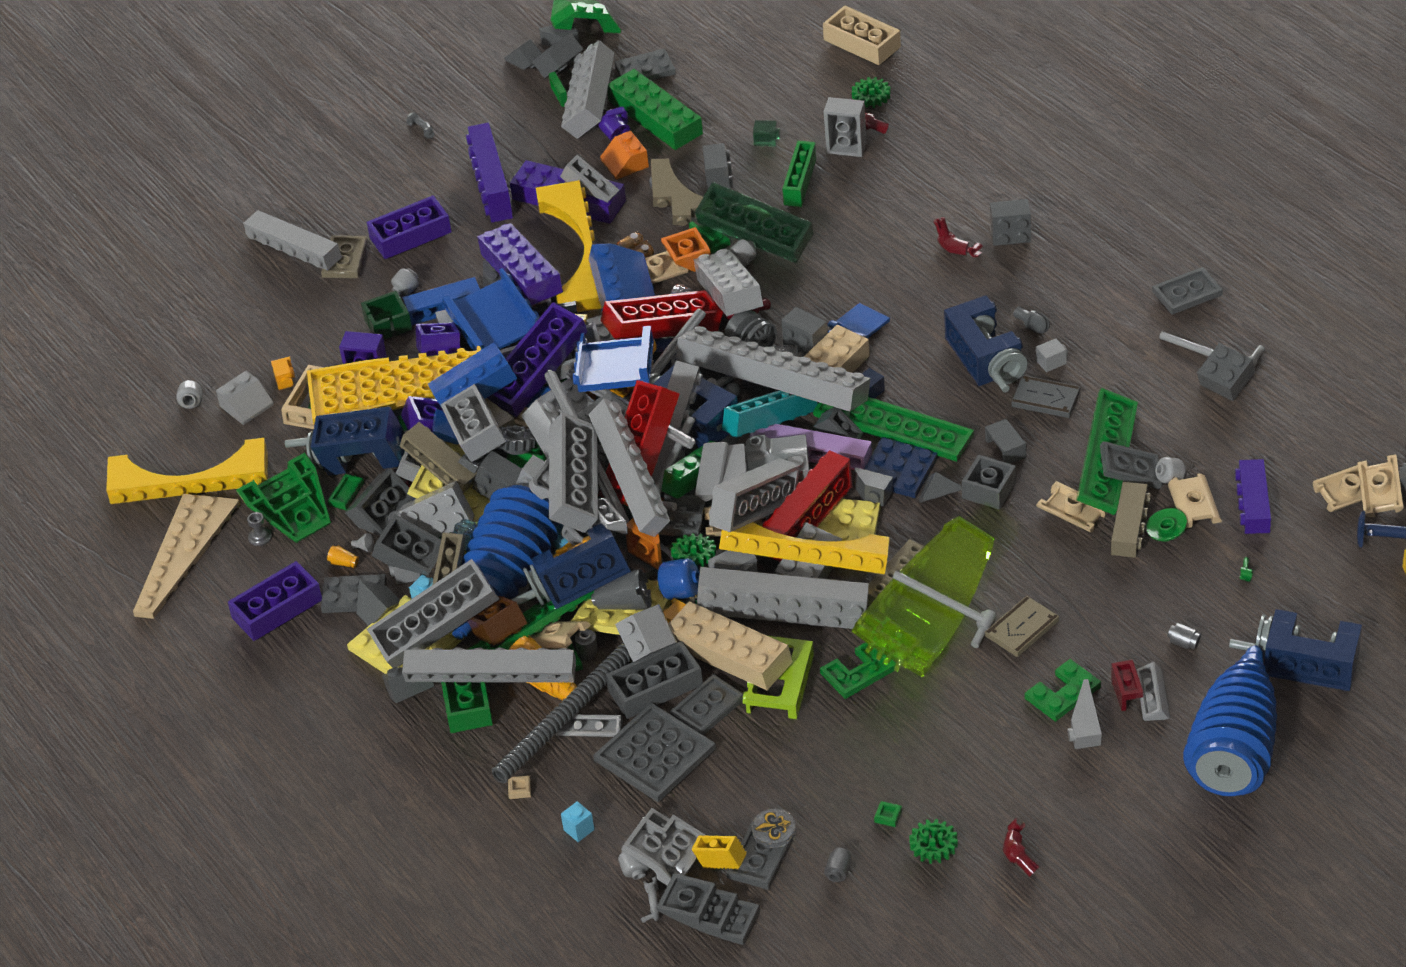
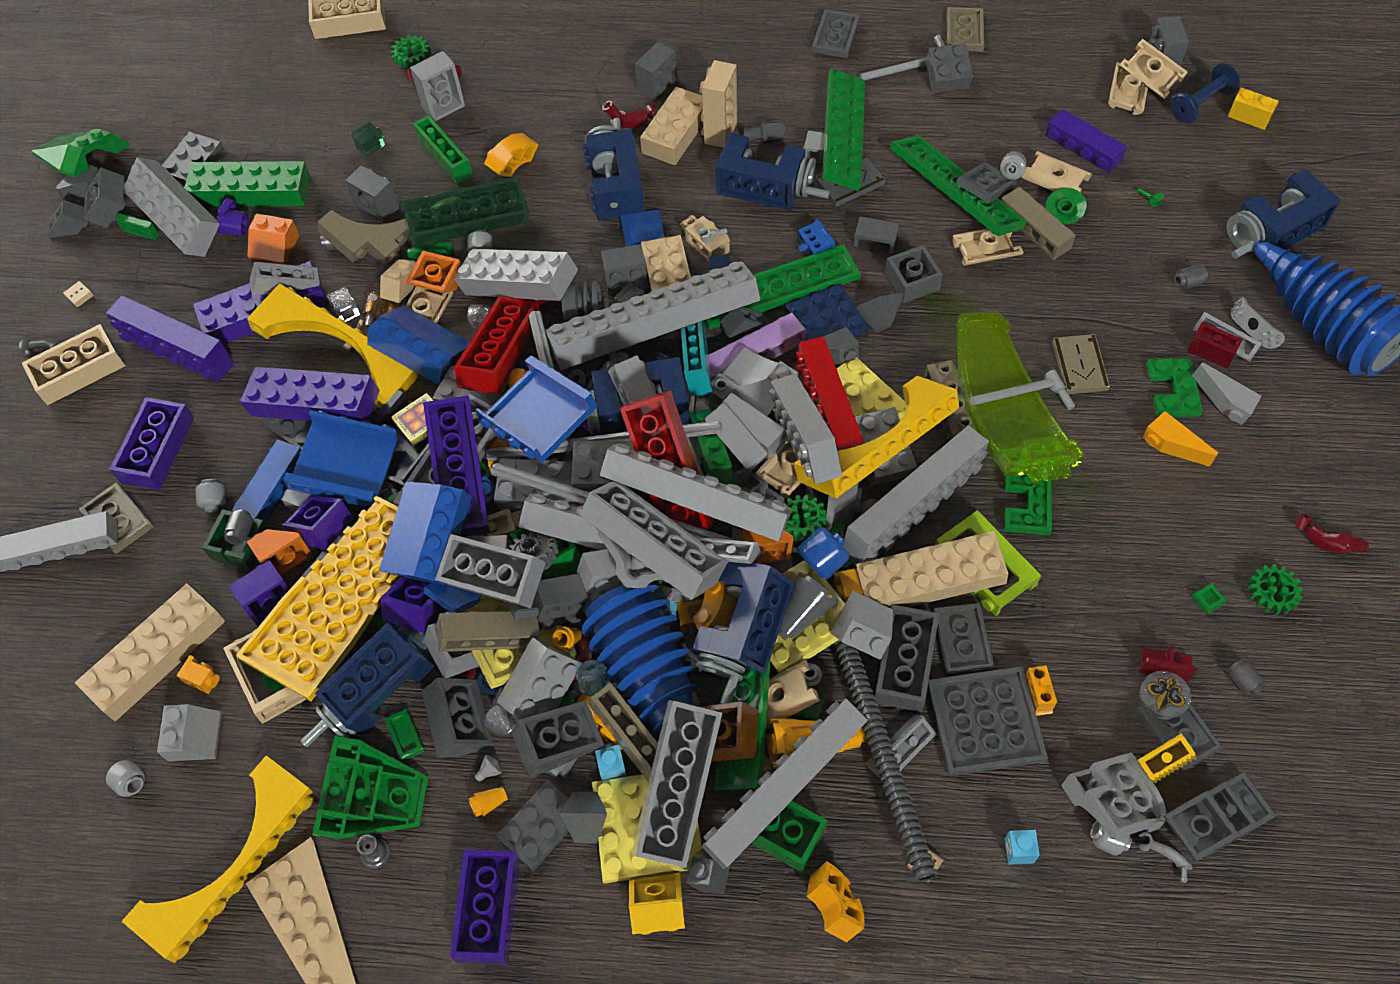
camera: 50 degrees left, 15 degrees up
(275, 339) = (150, 652): none -> tan brick
(356, 676) = (656, 903): none -> yellow slope
(390, 305) = (238, 527): none -> flat silver brick
(398, 338) = (282, 548): none -> orange slope
(422, 148) = (73, 364): none -> tan brick
(445, 752) = (836, 901): none -> light orange brick
(478, 108) = (78, 294): none -> tan tile
(478, 502) = (566, 637): none -> light orange cone
(613, 227) = (343, 304): none -> clear brick
(653, 231) = (393, 281): none -> tan brick
(706, 763) = (1041, 690): none -> light orange piece
(805, 819) = (1158, 660): none -> dark red panel
(840, 208) = (510, 154): none -> light orange brick
(884, 353) = (707, 236): none -> light grey hand
(890, 357) = (717, 247): none -> tan brick
(900, 266) = (612, 153): none -> dark blue piece
(961, 412) = (815, 238): none -> blue piece
(975, 270) = (673, 127): none -> tan brick
(1007, 270) = (719, 103): none -> tan brick
(1007, 713) = (1176, 440): none -> light orange slope
(1085, 356) = (844, 130): none -> green plate
(1175, 710) = (1265, 333): none -> light grey piece
(1294, 358) = (965, 26): none -> dark tan tile

